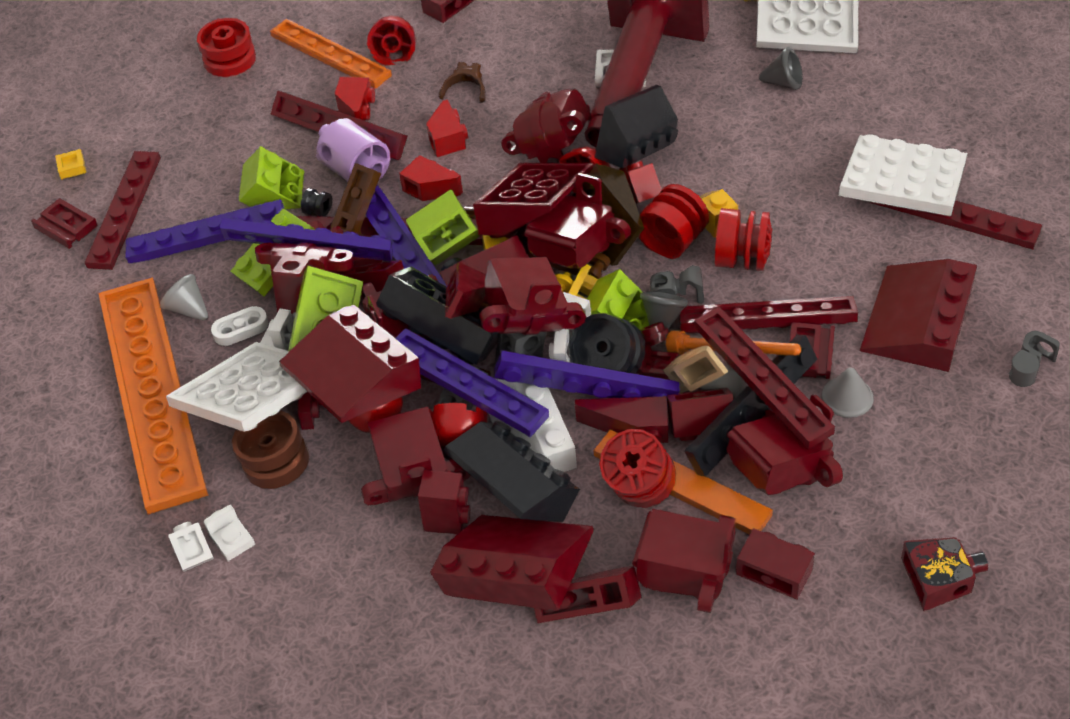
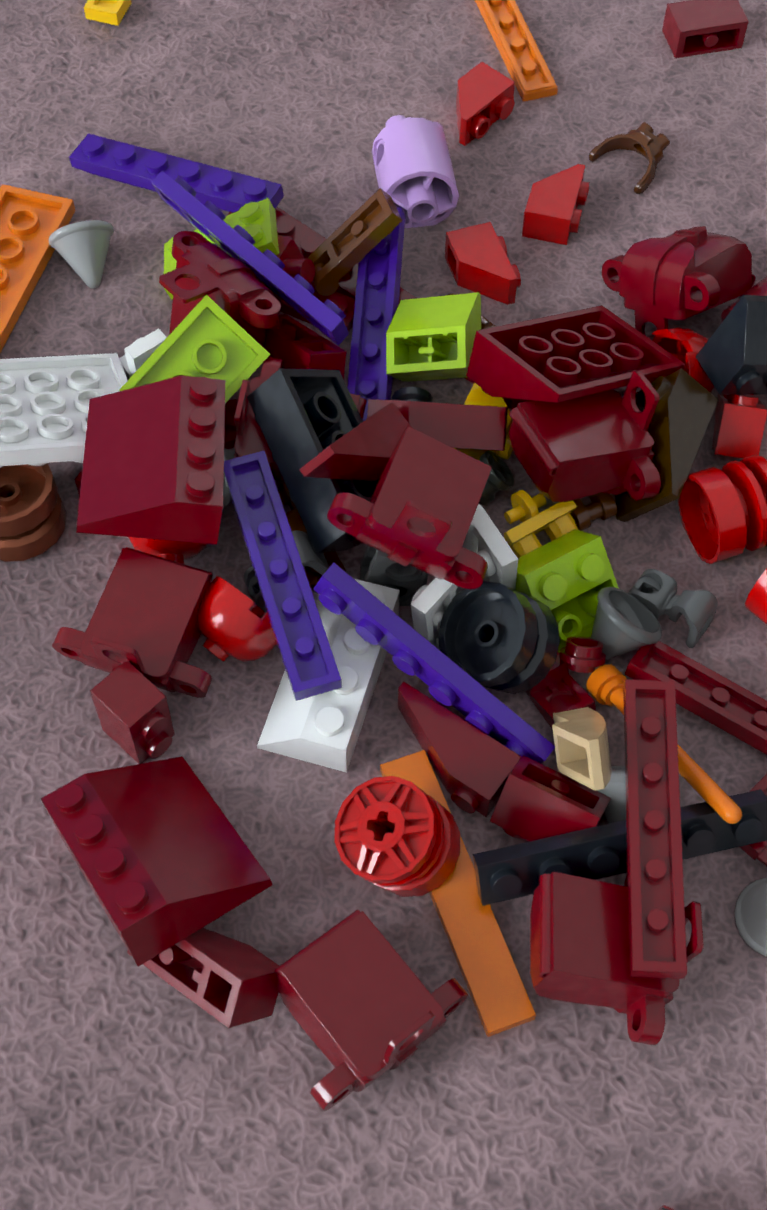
camera: 30 degrees right, 10 degrees up
(64, 223) = (42, 75): dark red plate -> none
(122, 210) = (117, 95): dark red plate -> none
(239, 326) = (118, 320): white plate -> none
(269, 179) = (299, 155): lime slope -> none
(315, 116) = (421, 100): dark red plate -> none
(316, 202) = (325, 212): black wheel -> none
(389, 36) = (583, 39): red cylinder -> none
(514, 472) = (239, 735): black slope -> none
(775, 563) = (474, 1097): dark red brick -> none

